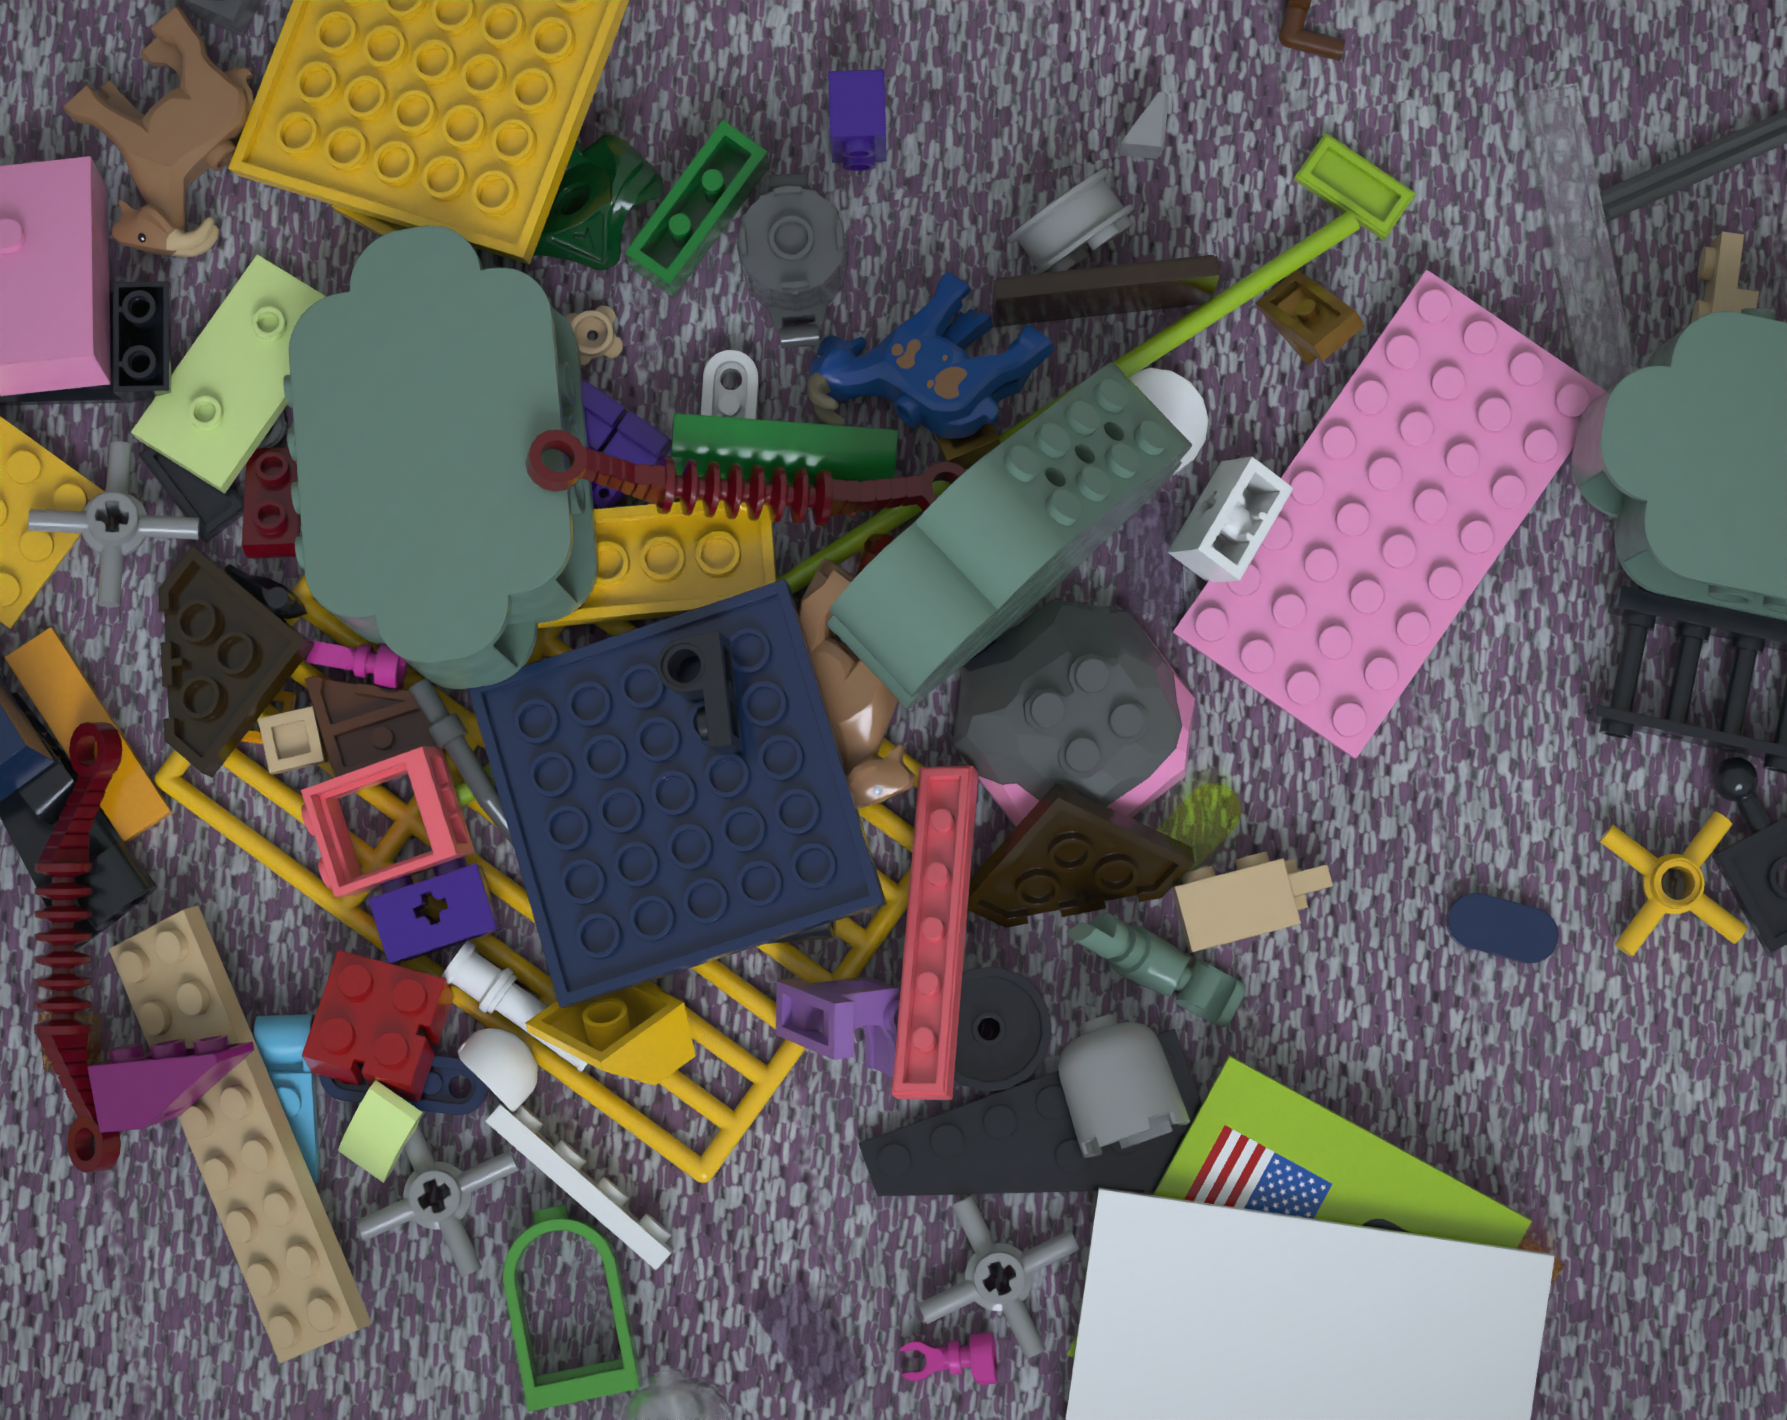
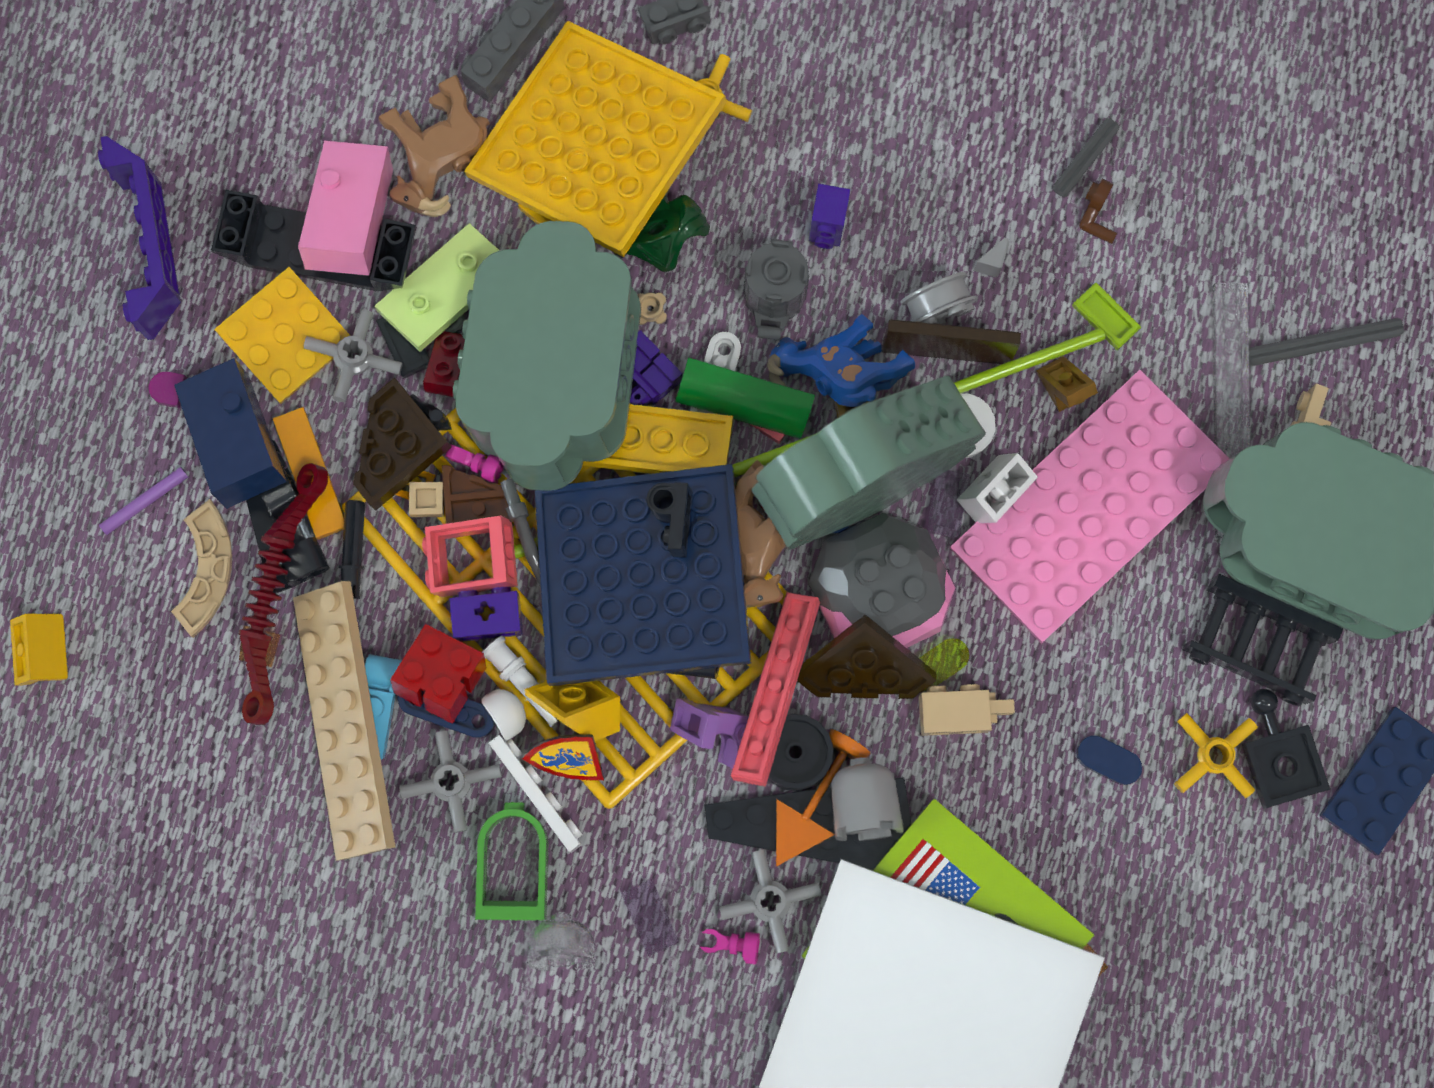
camera: 10 degrees right, 5 degrees down
(155, 1086) = (305, 680): magenta slope -> none
(188, 842) = (352, 545): none -> black axle
(379, 1131) = (425, 735): yellowish green slope -> none
(619, 1117) = (567, 757): none -> shield
(662, 485) = (671, 395): dark red piece -> none
(697, 209) = (726, 248): green brick -> none
(1018, 1155) = (795, 830): none -> orange piece
(1162, 967) = (904, 739): sand green piece -> none

